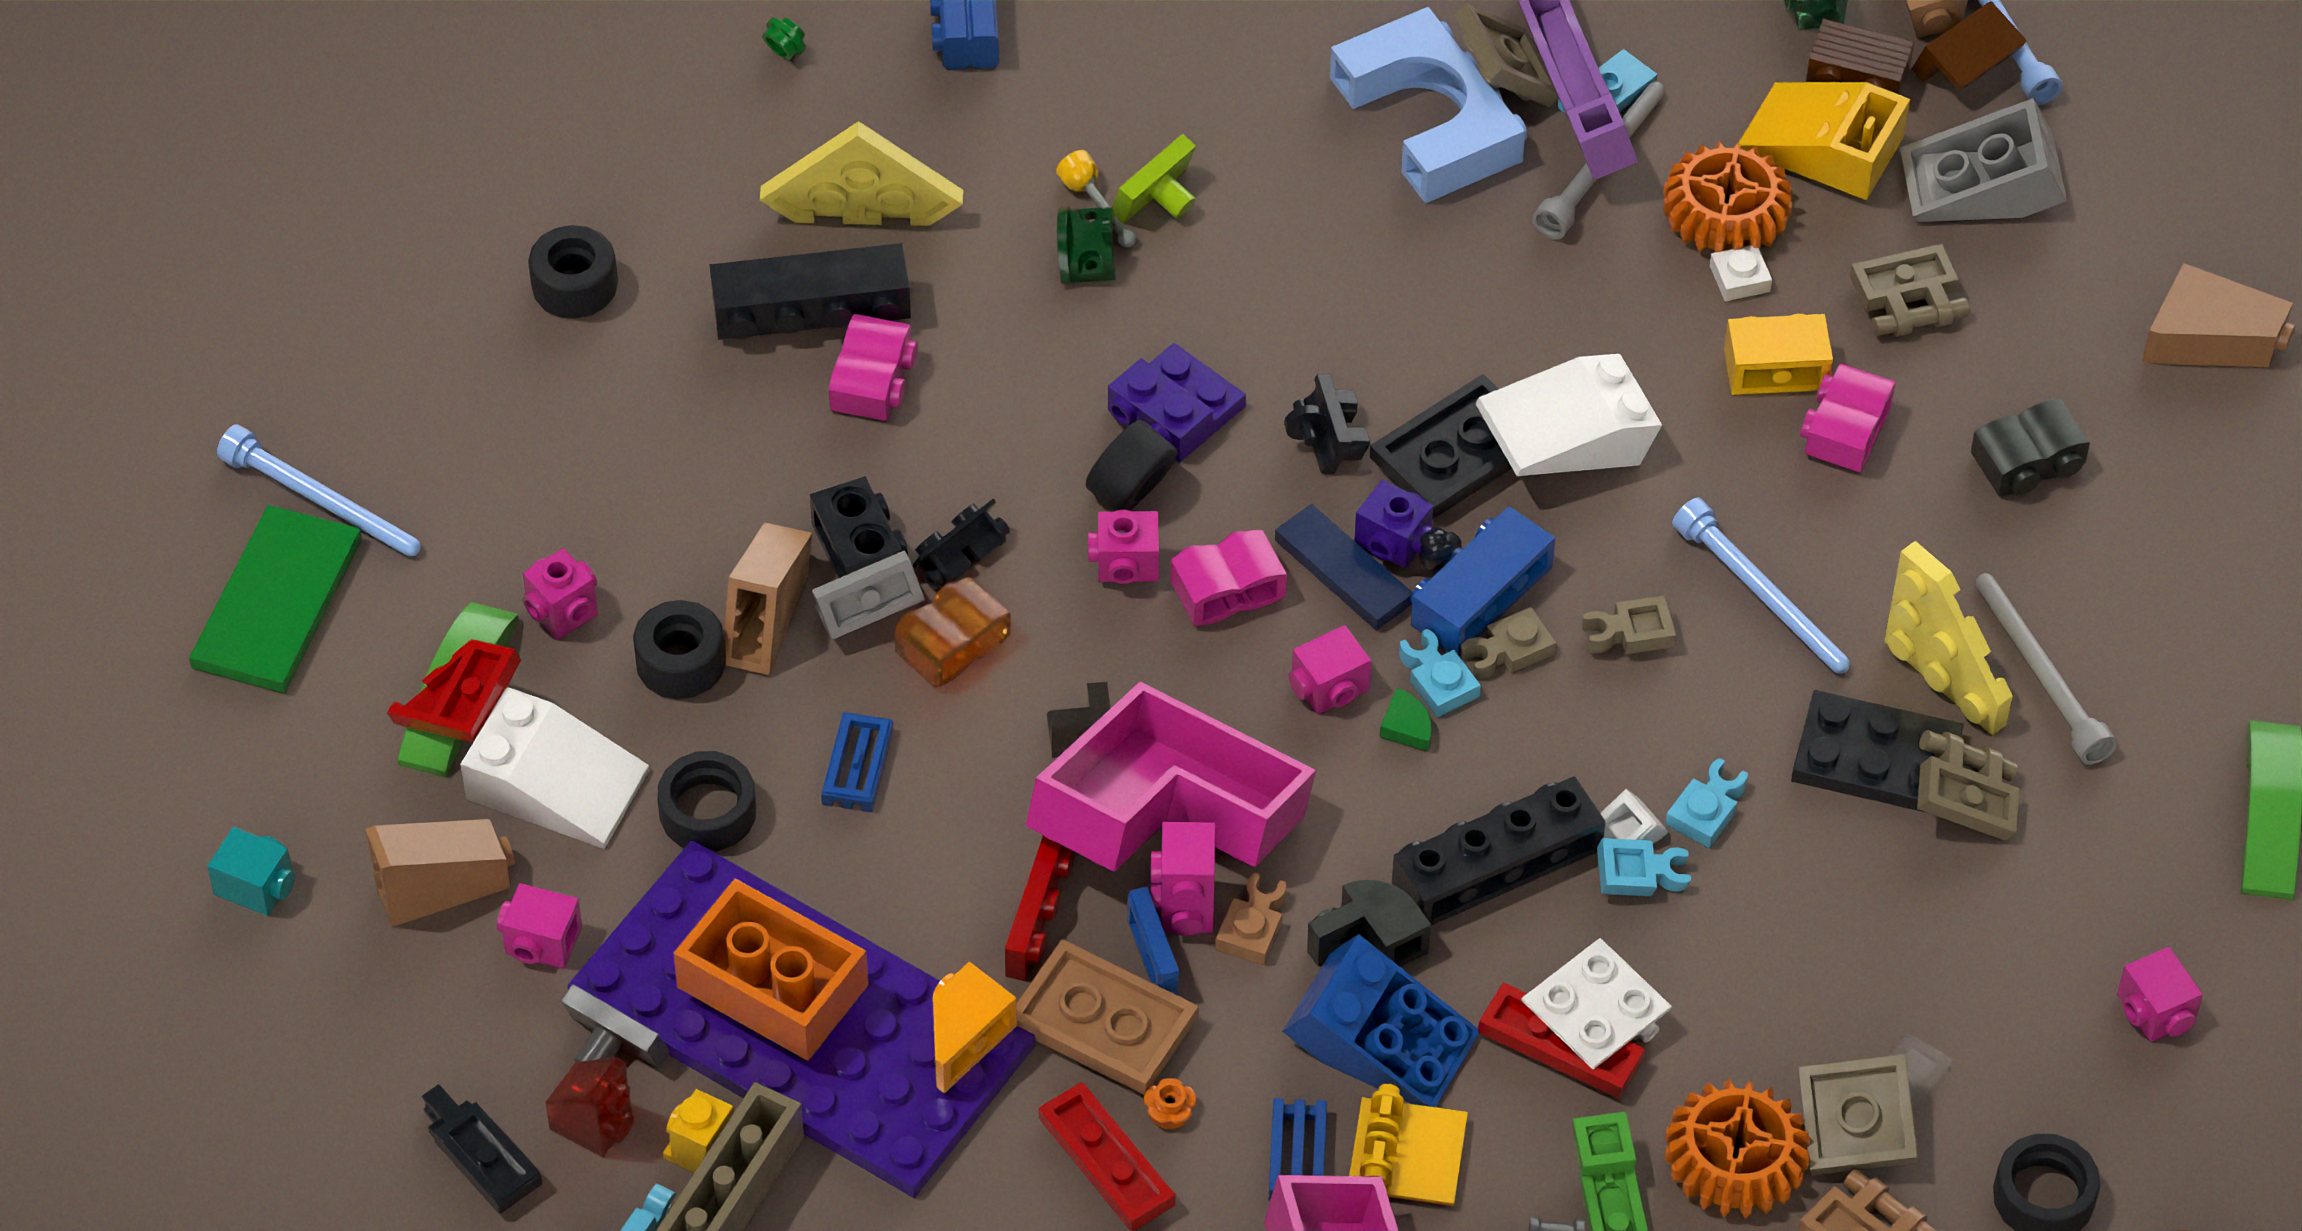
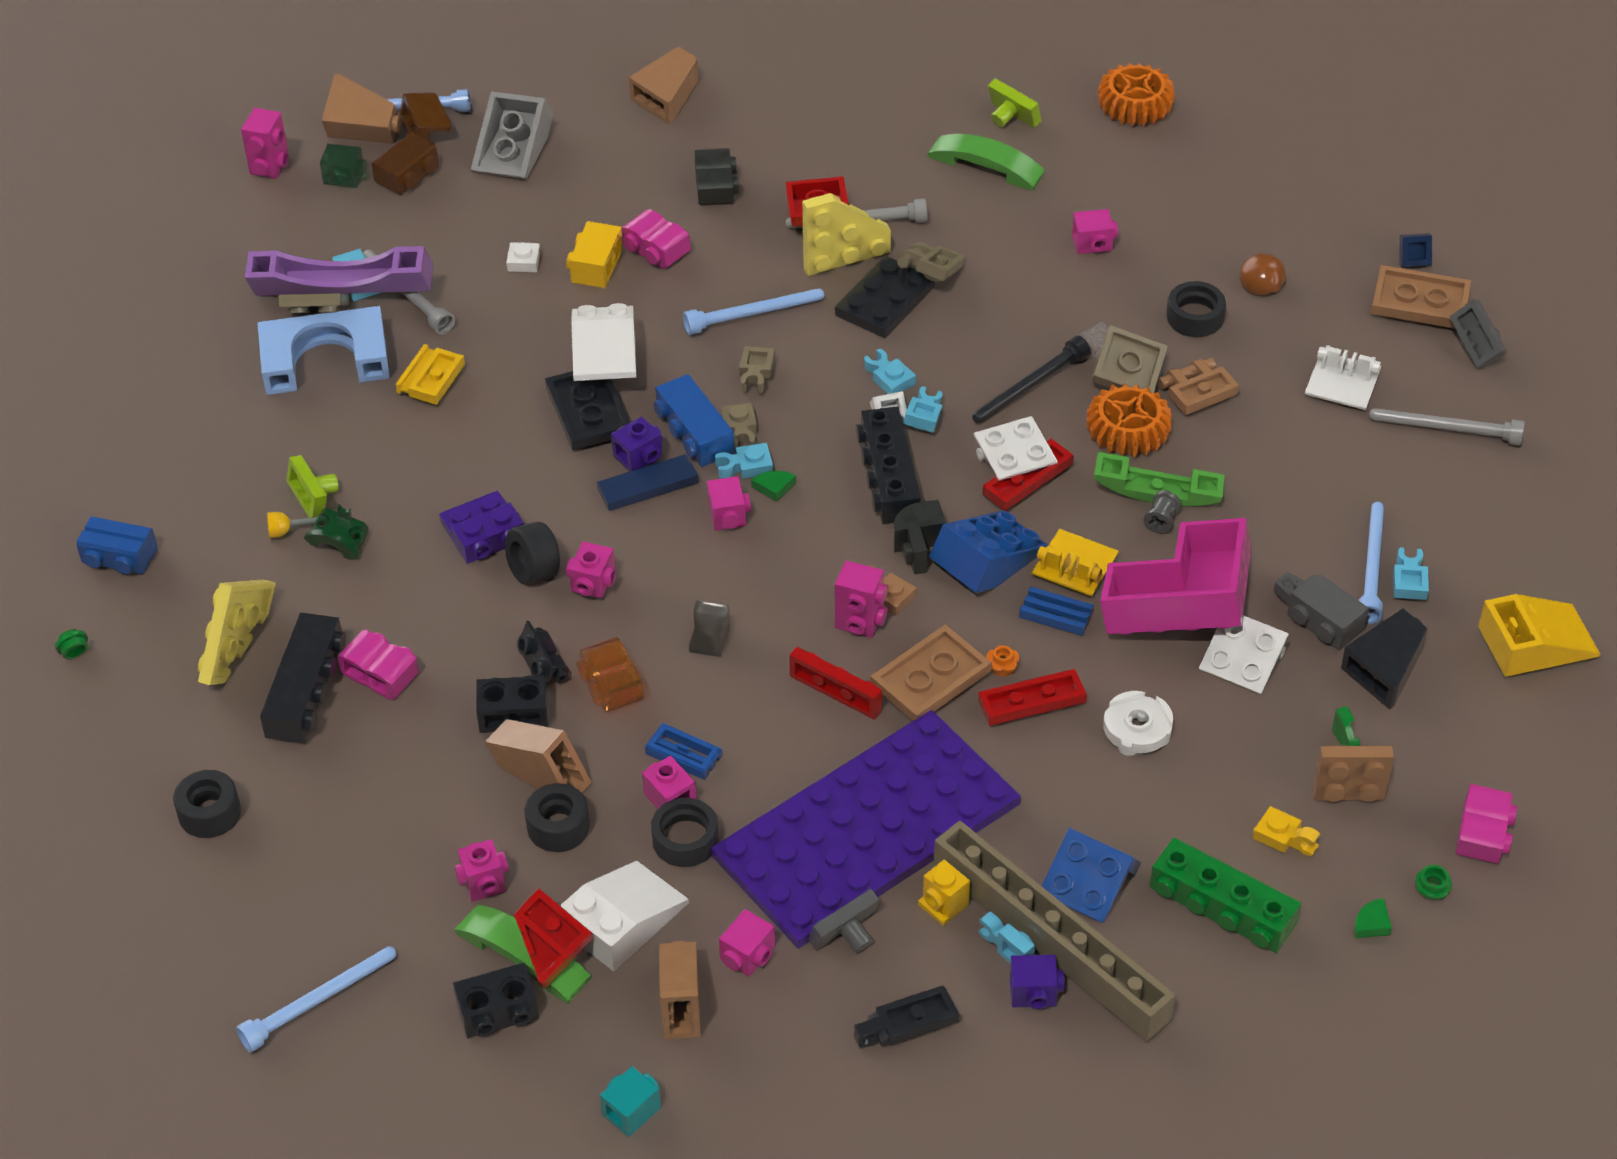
camera: 70 degrees left, 5 degrees down
(275, 598) = (394, 1043): green tile -> none
(365, 674) = (494, 994): none -> black brick
(592, 1105) = (904, 939): clear red slope -> none
(771, 969) = (852, 811): orange brick -> none
(777, 757) = (667, 781): none -> dark pink brick
(867, 595) = (568, 702): light grey panel -> none
(969, 1021) = (925, 729): light orange slope -> none
(1151, 940) = (889, 634): blue tile -> none
(1167, 764) = (788, 588): dark pink piece -> none
(1228, 577) = (633, 532): dark pink brick -> none
(1322, 424) = (542, 458): black hips -> none
(1438, 547) = (669, 428): black arm -> none
(1439, 241) = (430, 374): none -> yellow plate
(1699, 190) = (472, 243): orange gear -> none
(1830, 131) = (450, 187): yellow slope -> none
(1866, 1037) = (1074, 351): none -> black piece
(1906, 278) = (569, 194): dark tan plate -> none
(2026, 595) = (806, 189): none -> red plate

